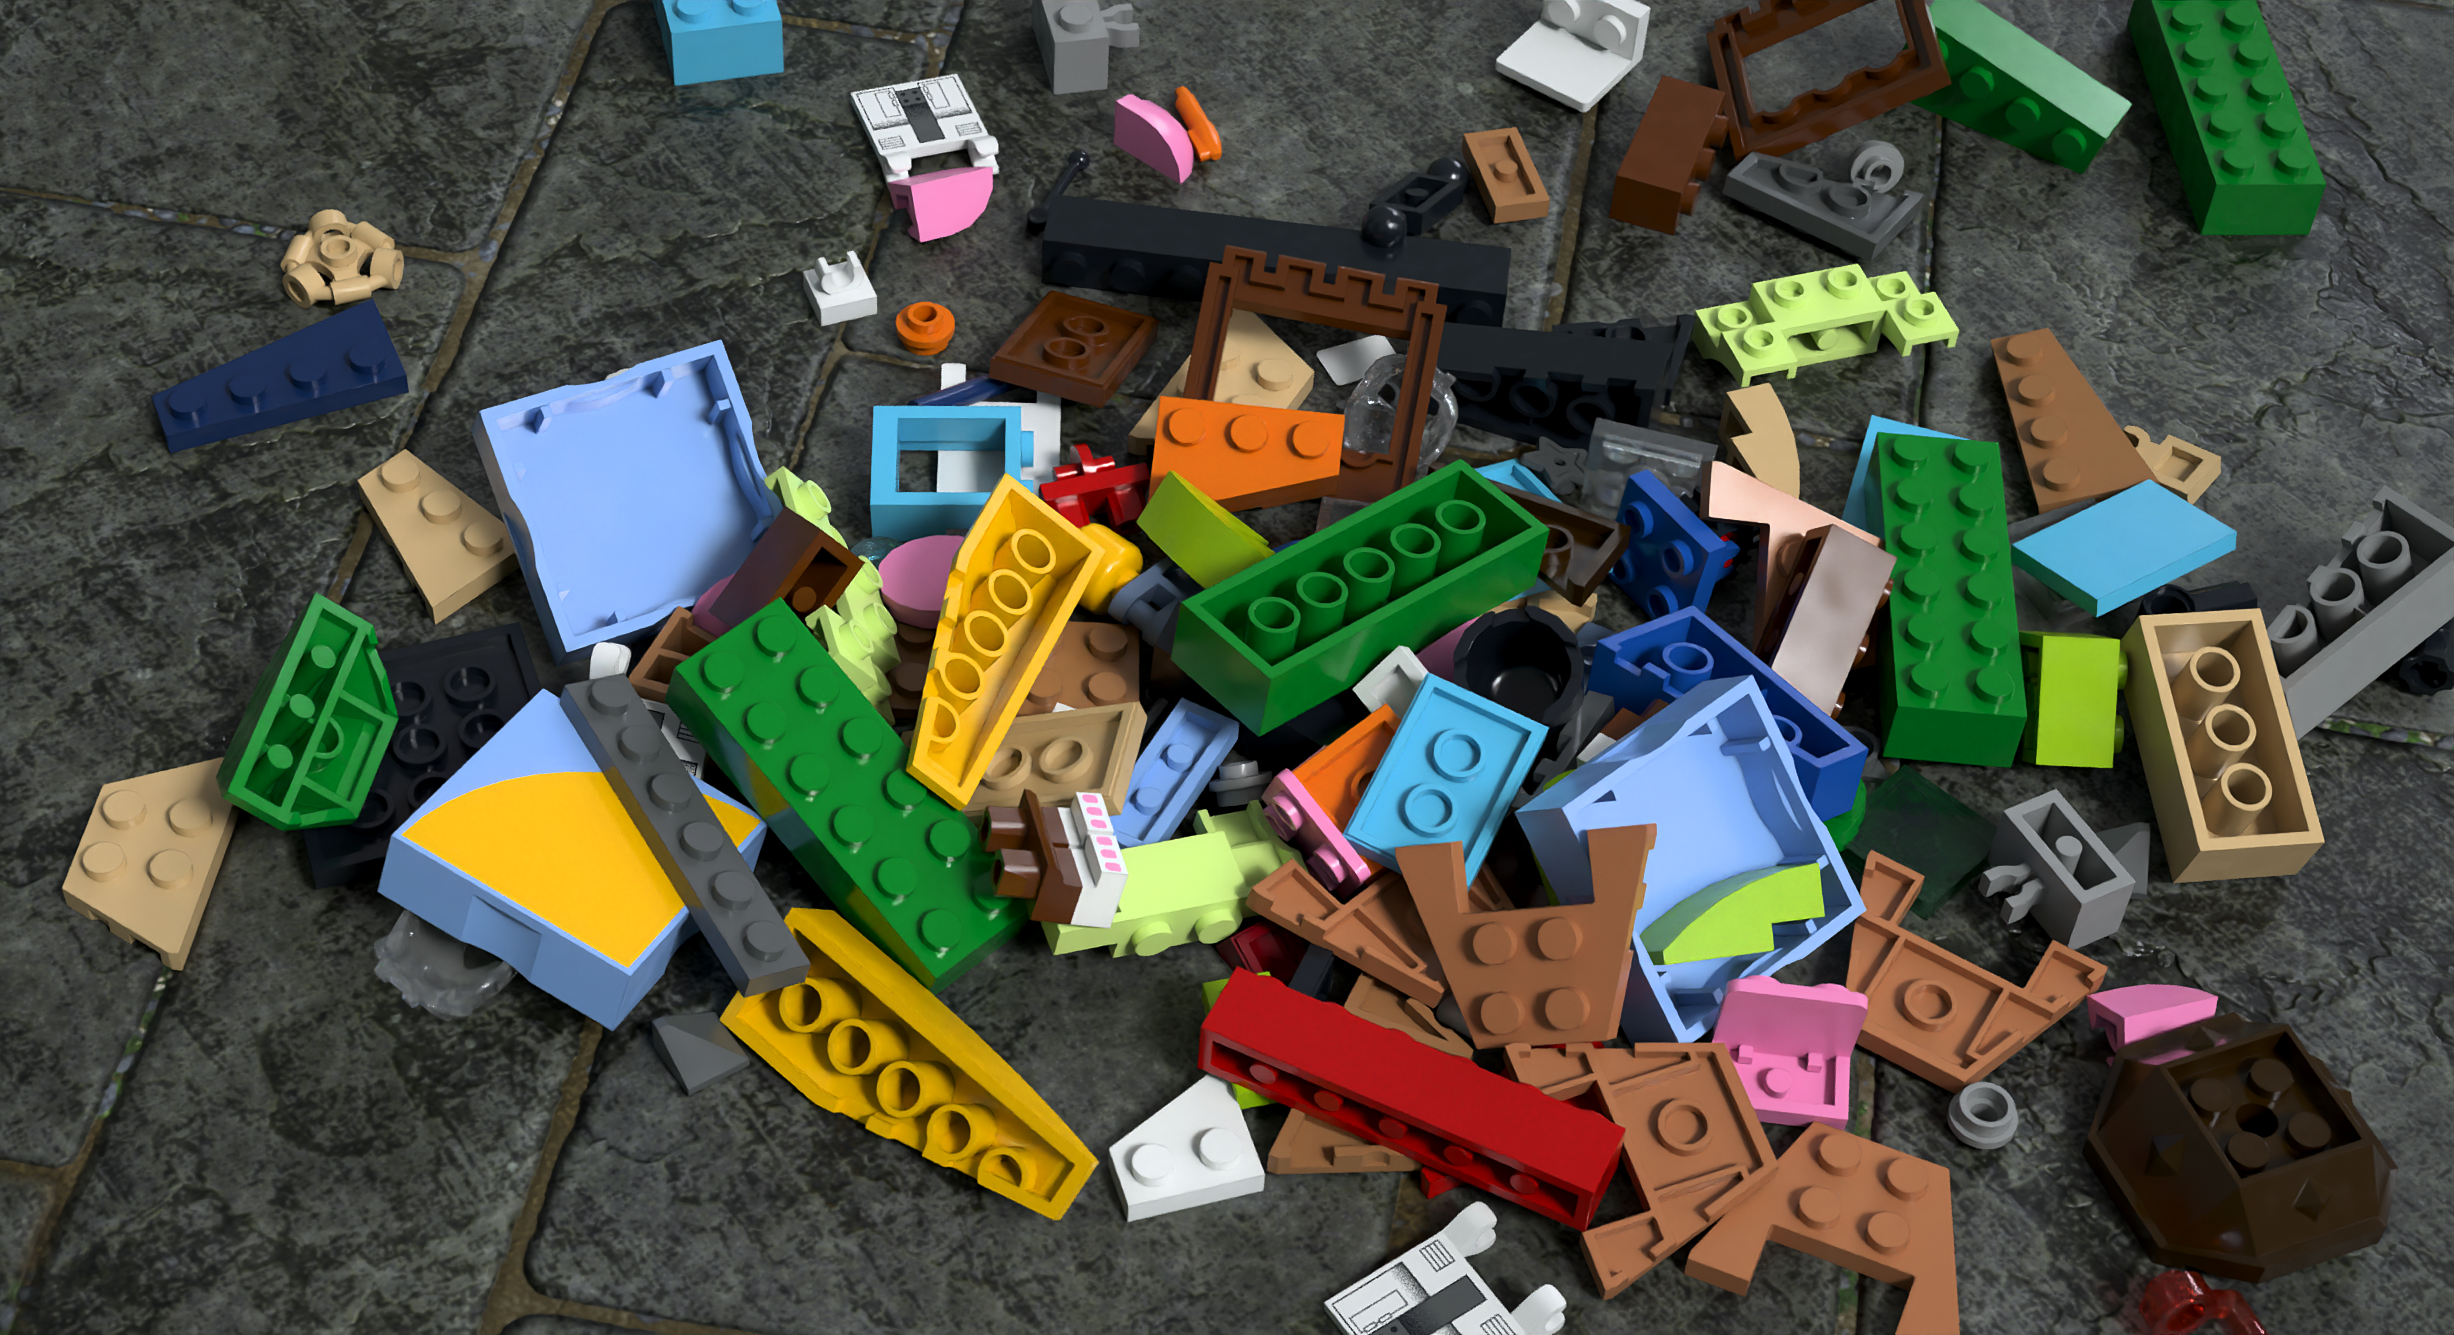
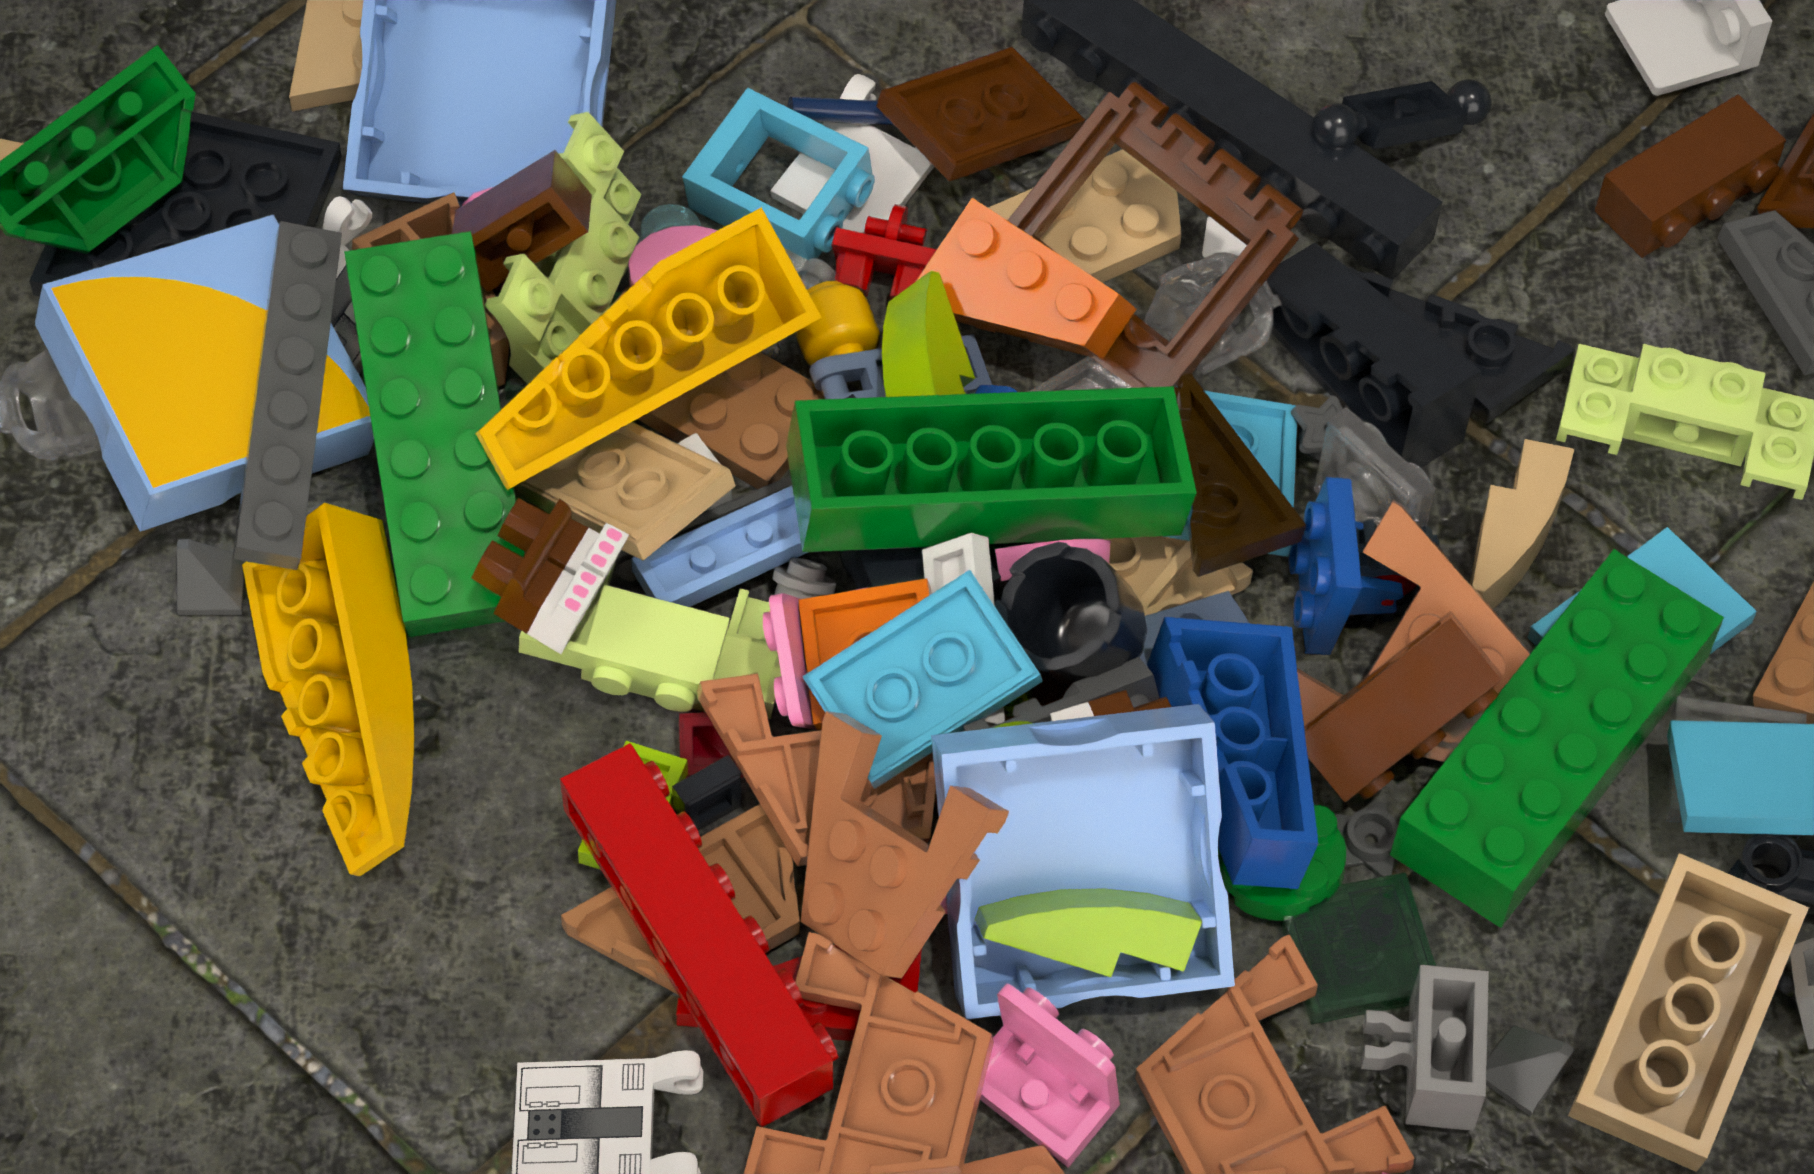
camera: 35 degrees right, 10 degrees up
(925, 328) = (879, 31): orange plate -> none
(1187, 1154) = (509, 878): white wing -> none
(1505, 175) = (1517, 124): medium nougat plate -> none
(2072, 698) = (1595, 886): lime brick -> none

